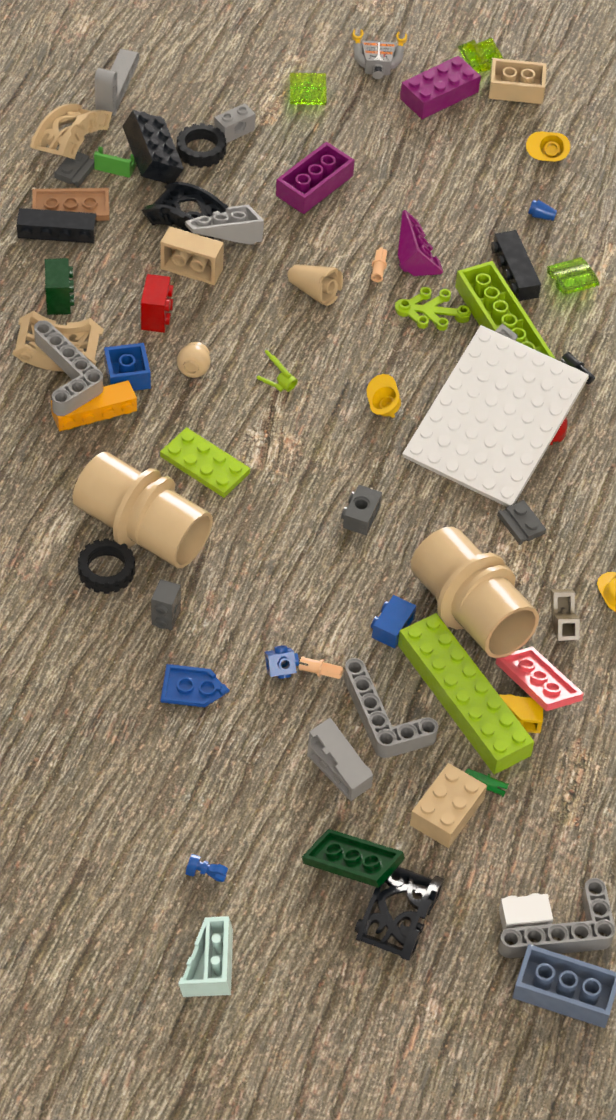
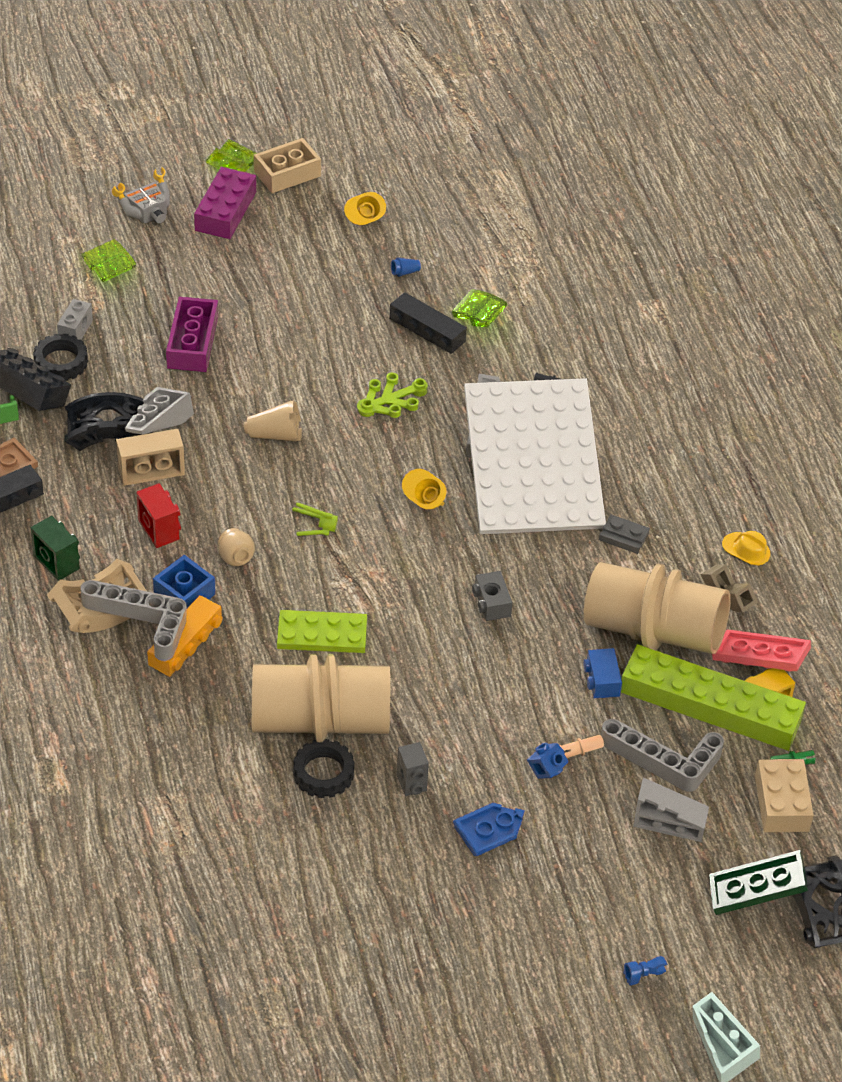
camera: 35 degrees left, 5 degrees down
(379, 265) = (313, 382): light nougat axle -> none
(415, 250) = (333, 354): magenta wedge -> none
(495, 304) = (444, 363): lime brick -> none

